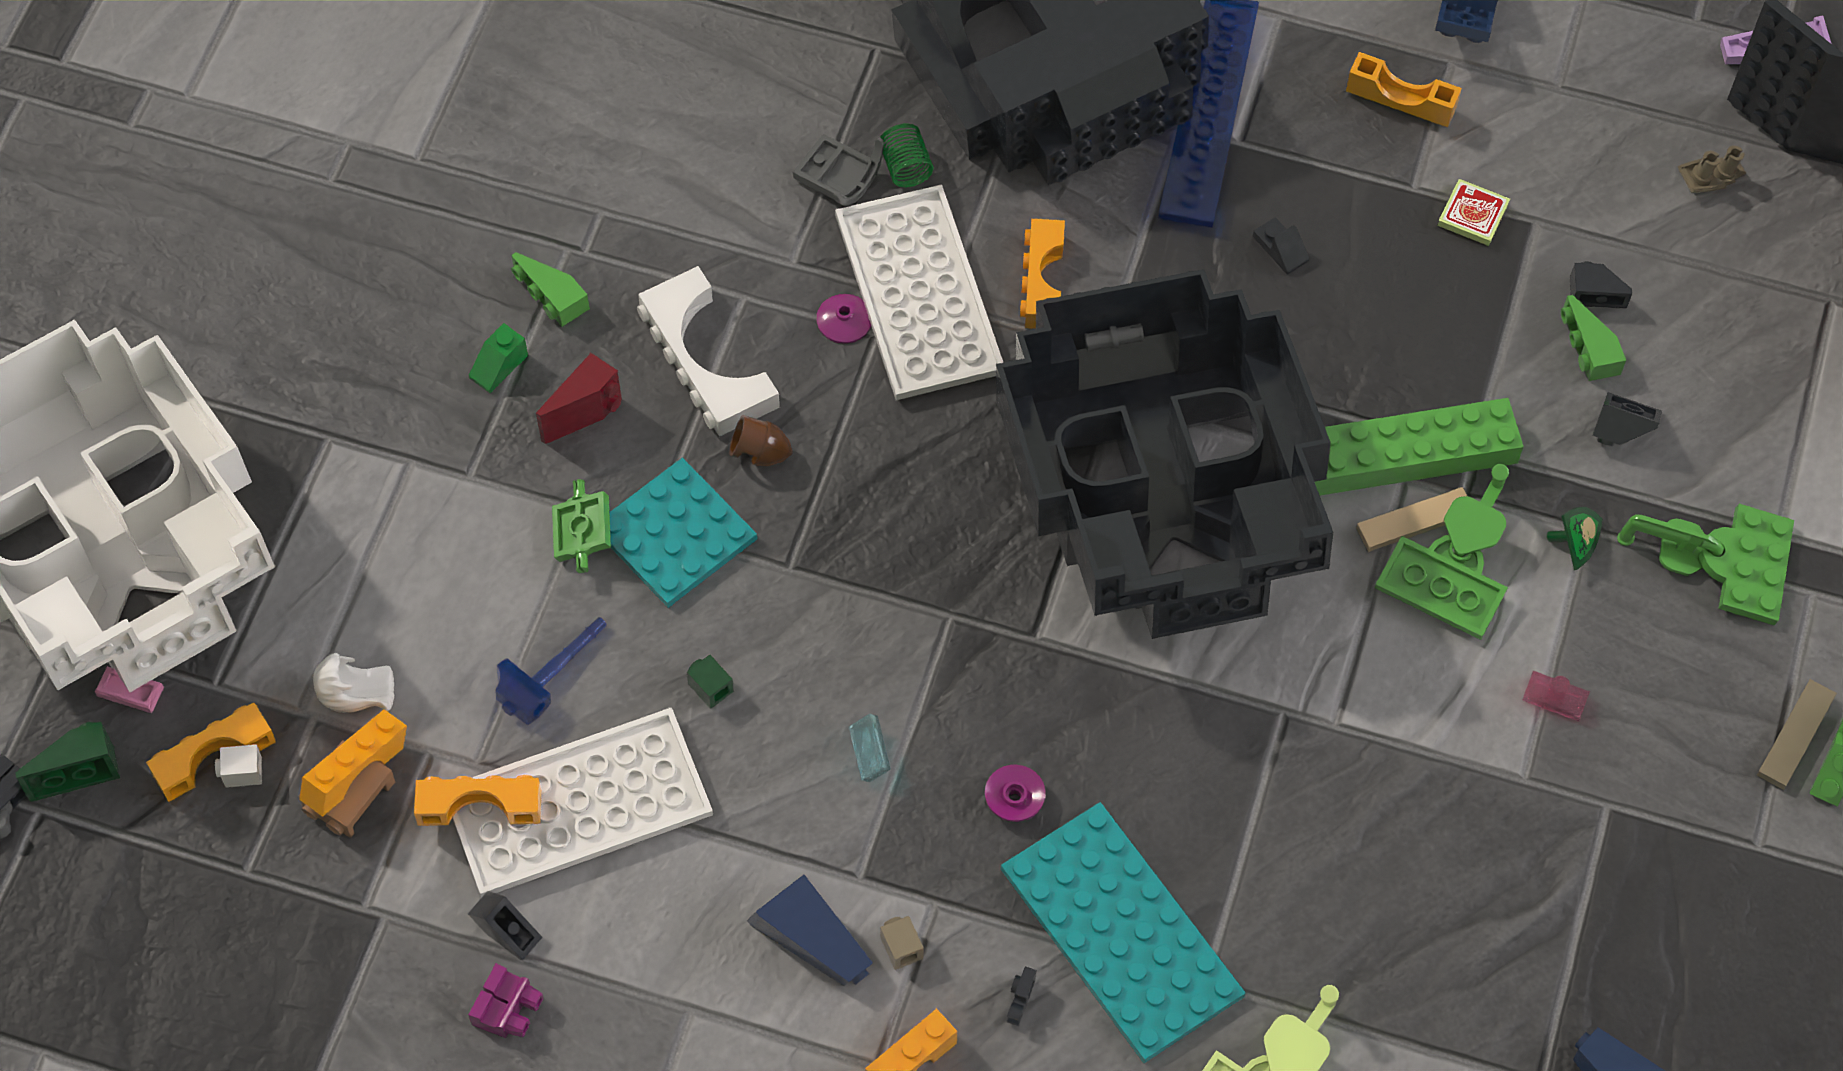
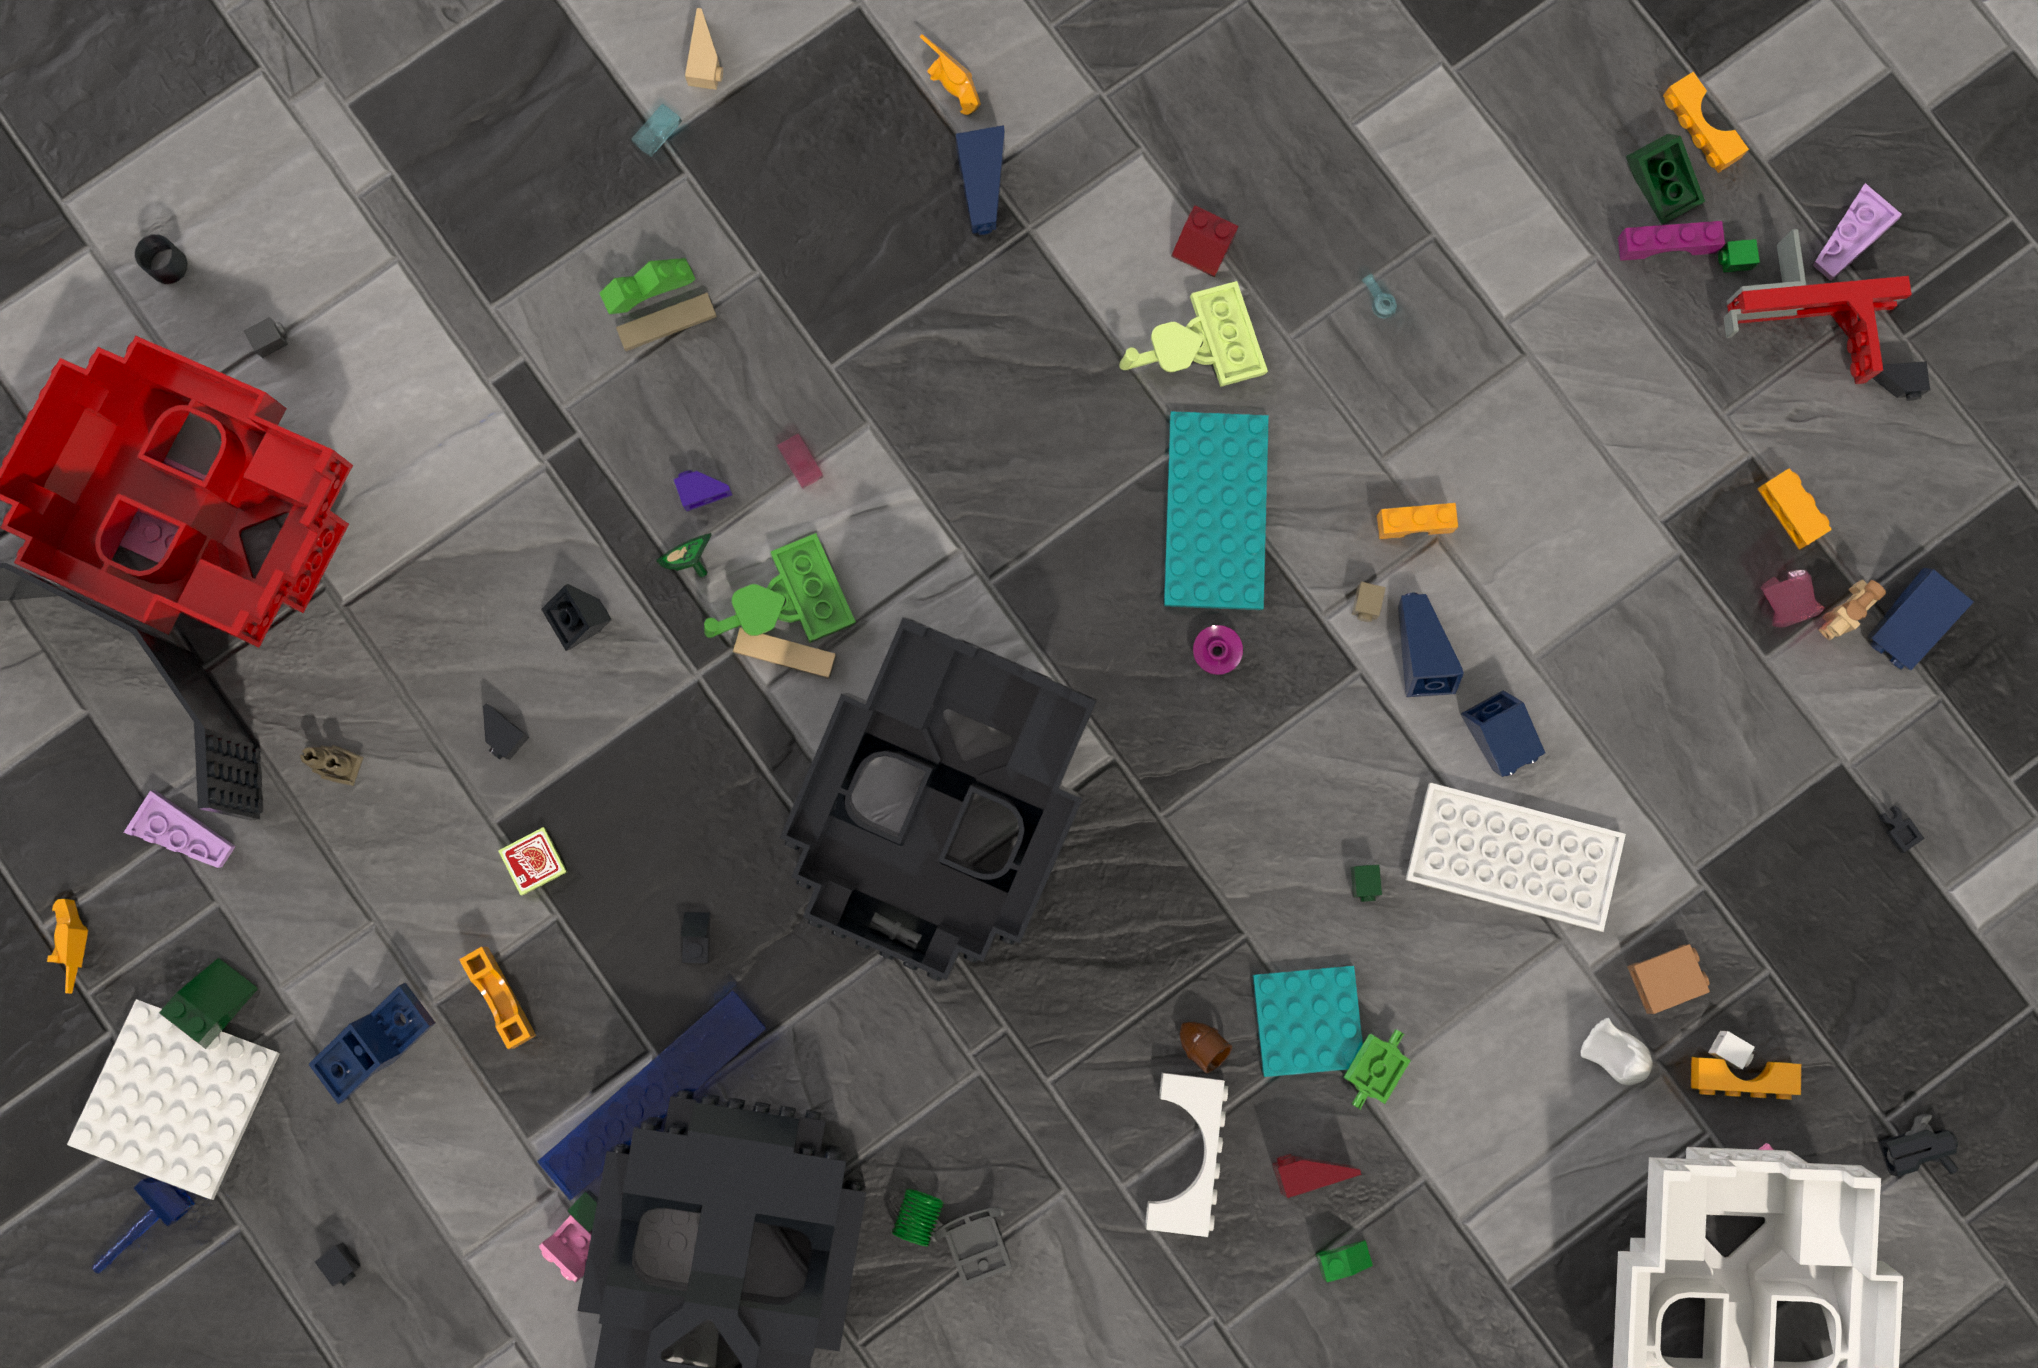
camera: 145 degrees left, 20 degrees up
(71, 763) = (1837, 1129): dark green slope -> none
(330, 779) = (1659, 988): light orange arch -> none
(441, 799) = (1562, 879): light orange arch -> none
(501, 1001) = (1657, 748): magenta hips -> none
(505, 924) = (1622, 801): black slope -> none
(526, 695) = (1501, 964): clear blue piece -> none
(556, 290) = (1261, 1284): bright green slope -> none
(673, 906) = (1504, 733): none -> dark blue slope
(839, 327) = (1061, 1099): magenta dish -> none
(869, 748) = (1291, 753): clear light blue plate -> none
(919, 292) = (992, 1094): white plate -> none
(1022, 988) = (1312, 514): black plate -> none
(1046, 246) = (870, 1064): light orange arch -> none
(1421, 446) = (740, 702): bright green brick -> none
(1596, 344) = (544, 687): bright green slope -> none
(1623, 601) = (699, 489): none -> dark purple slope
(1750, 562) = (590, 455): bright green plate -> none

